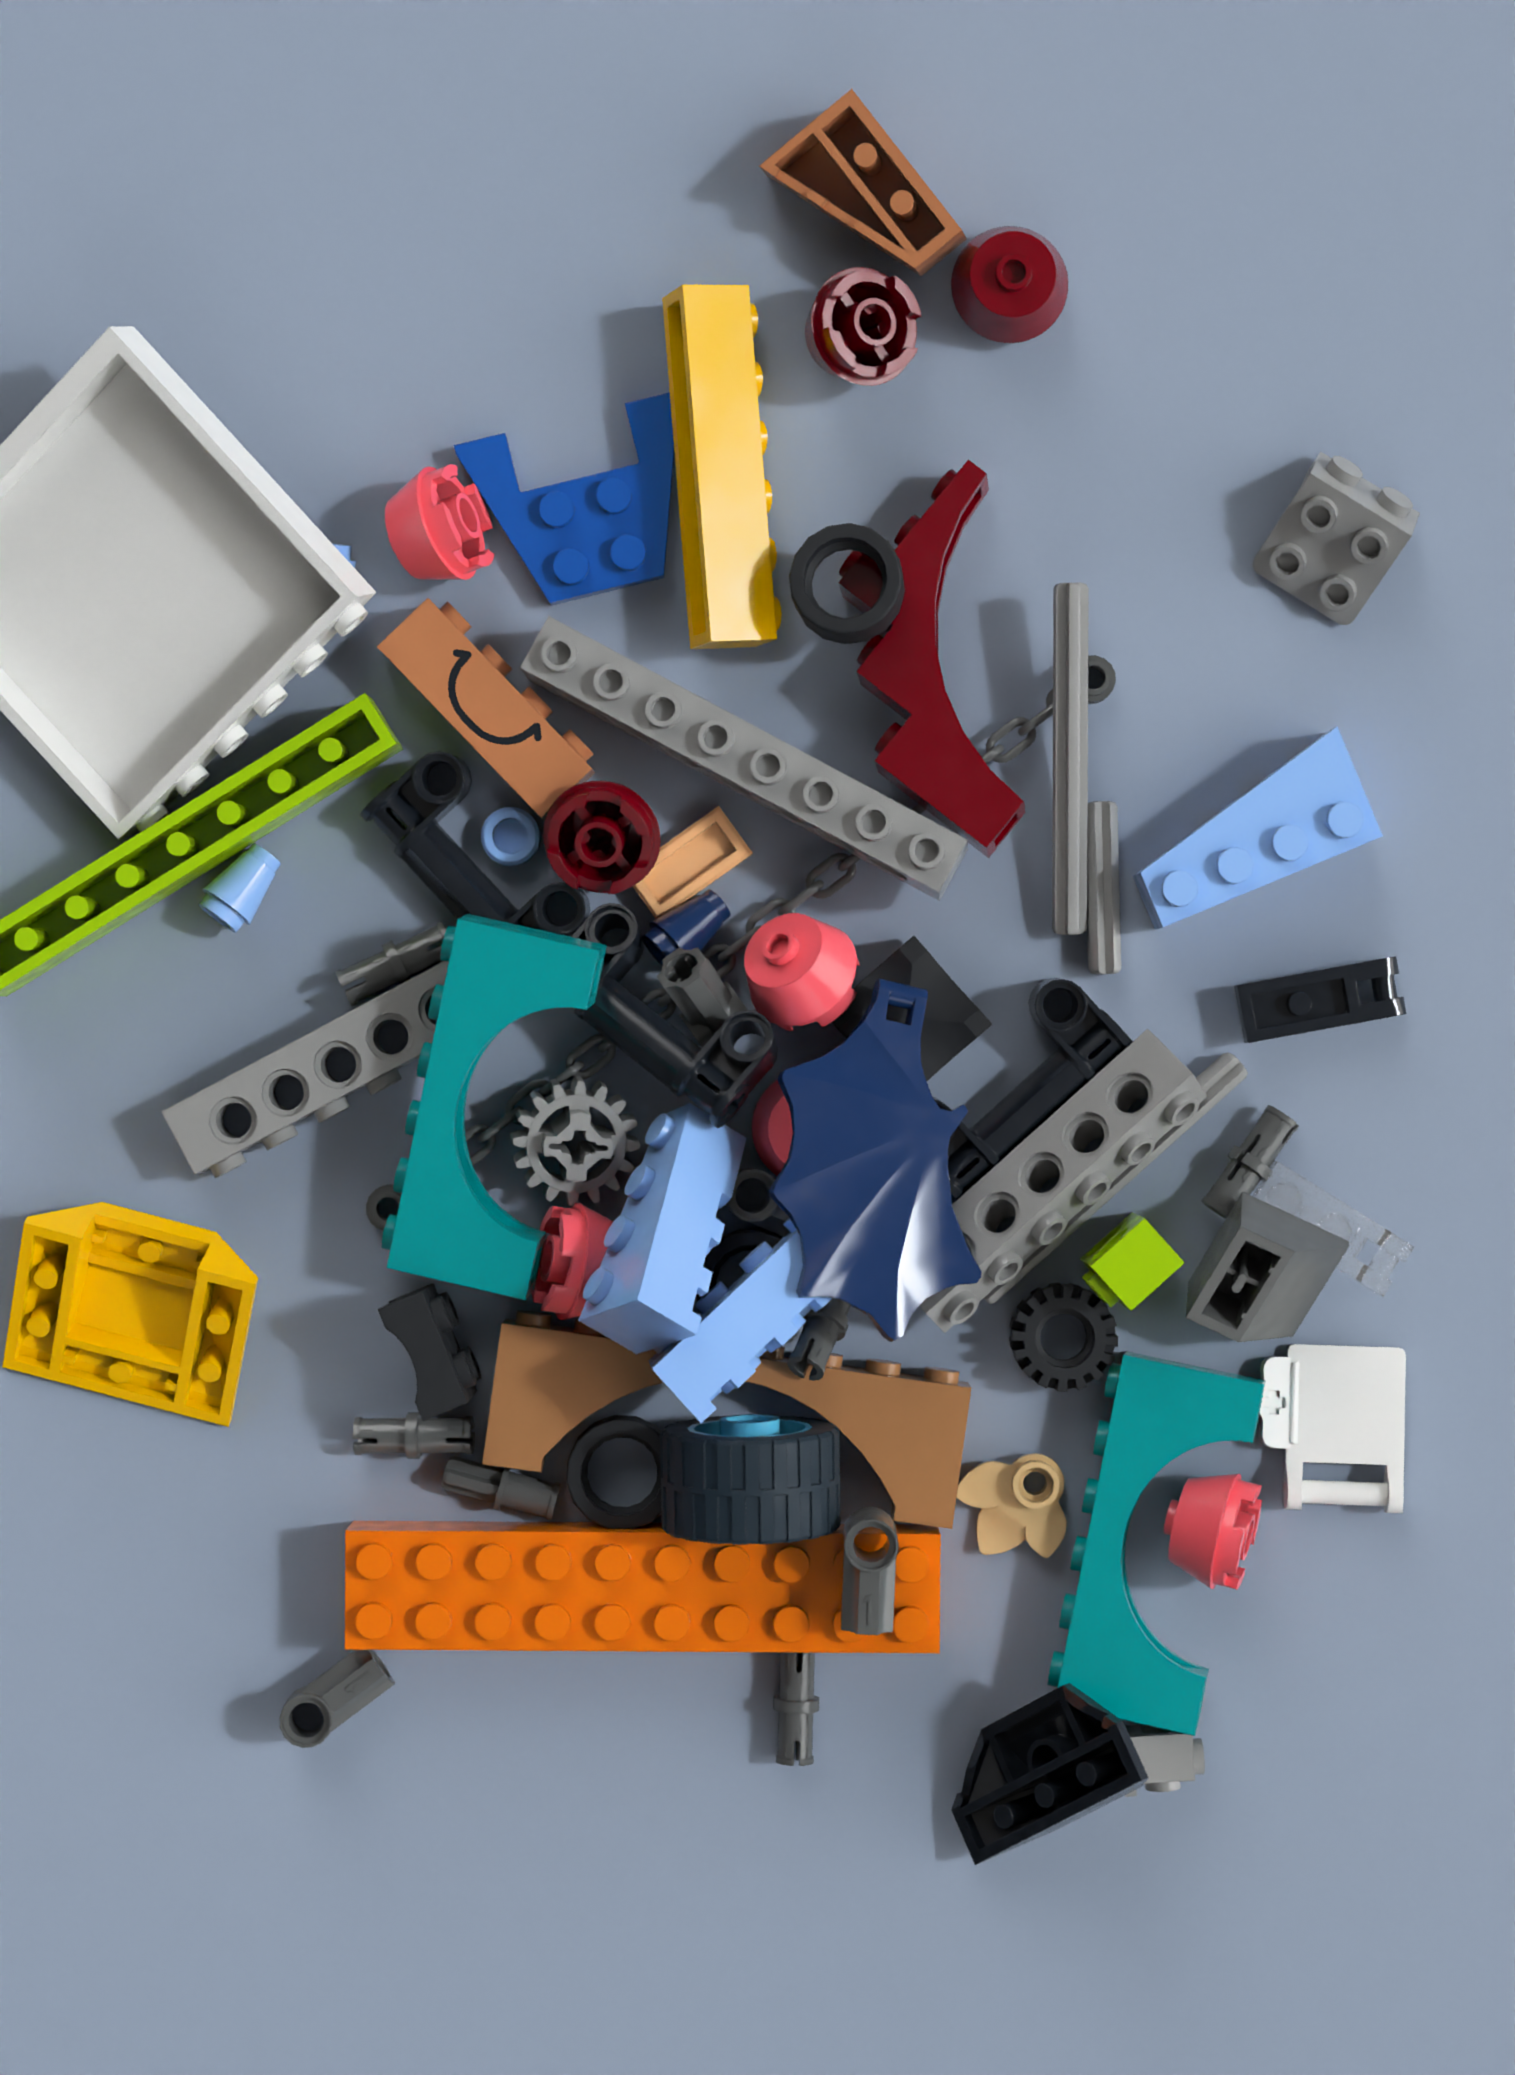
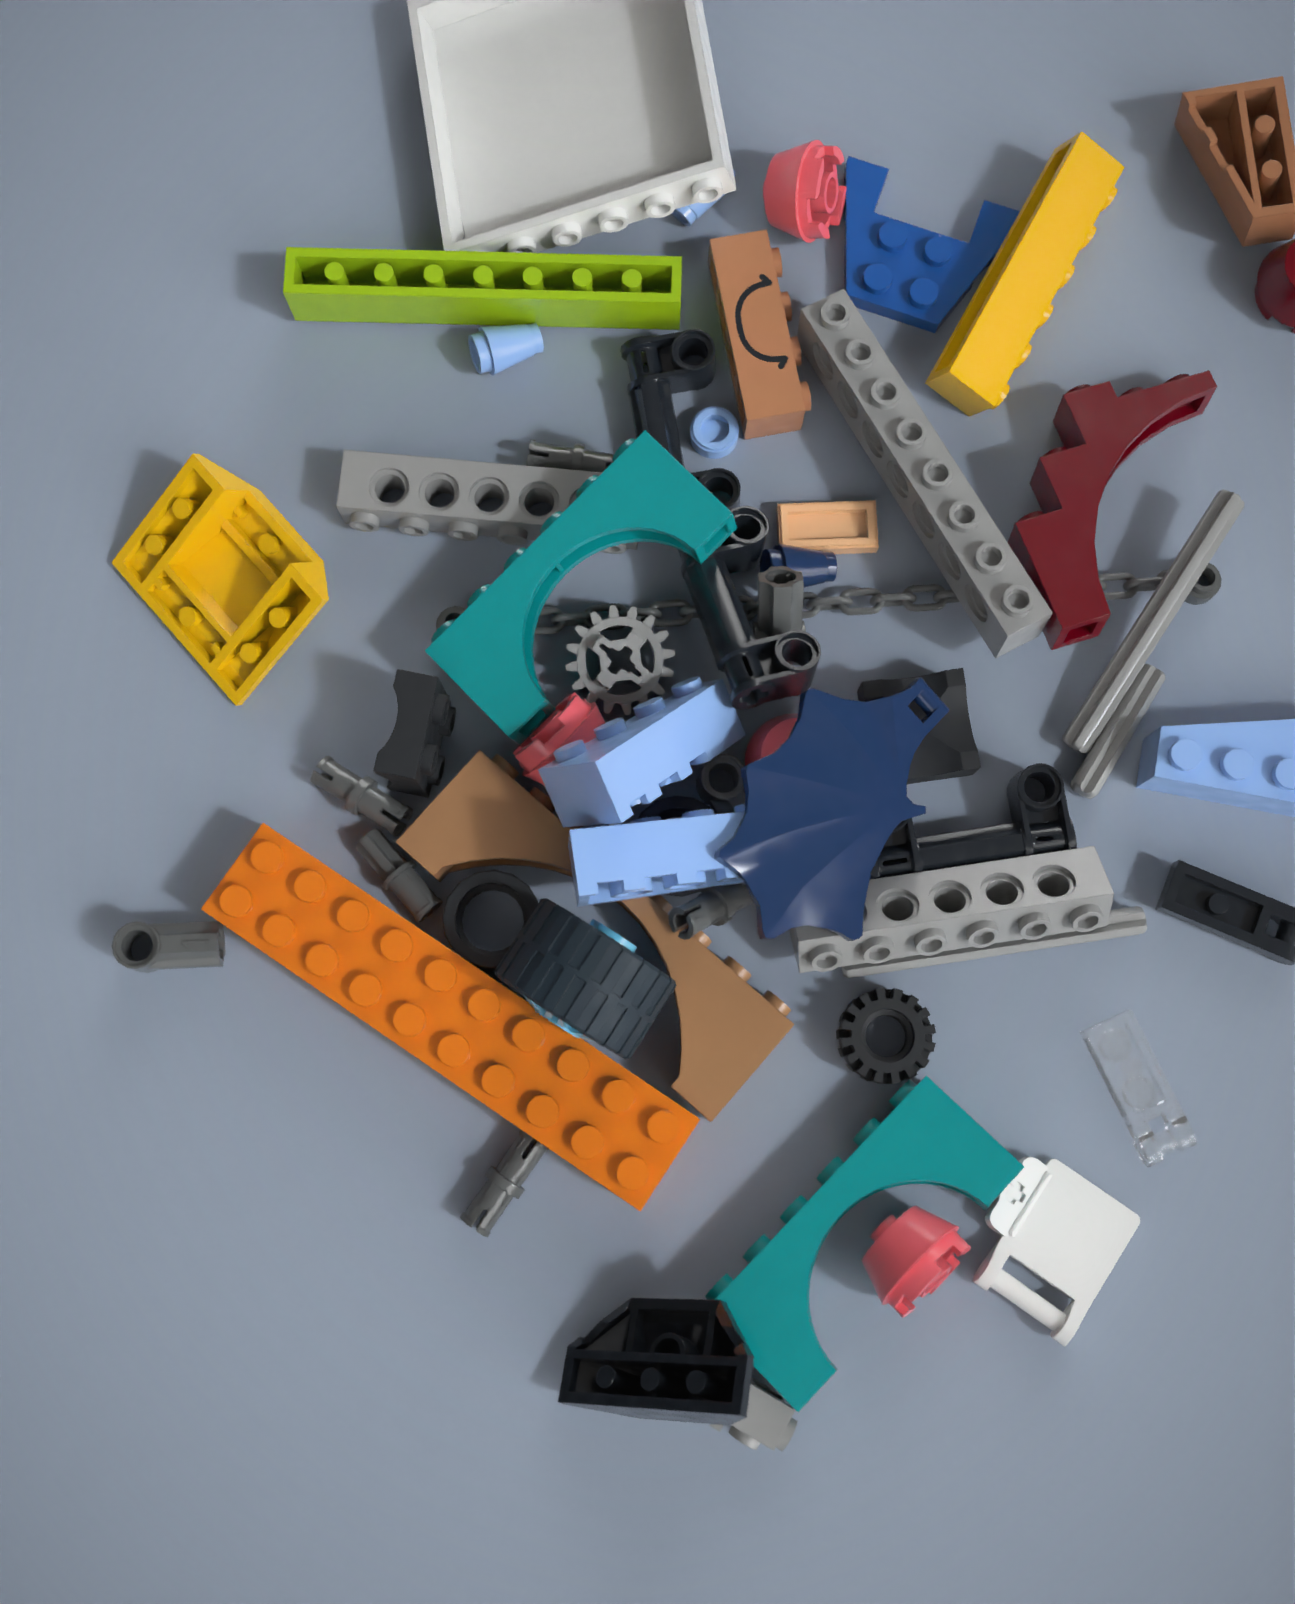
camera: 35 degrees right, 10 degrees down
(601, 837) = (782, 459): dark red cone -> none
(800, 971) = (864, 639): coral cone -> none
(842, 538) = (1080, 359): black tyre -> none
(863, 326) = (1187, 240): dark red cone -> none
(868, 1576) = (625, 1112): dark grey piece -> none
(1010, 1511) = (761, 1145): tan plate -> none
(1129, 1263) = (976, 1007): lime brick -> none
(1250, 1161) = (1107, 999): dark grey pin -> none
(1261, 1272) = (1072, 1084): dark grey slope -> none

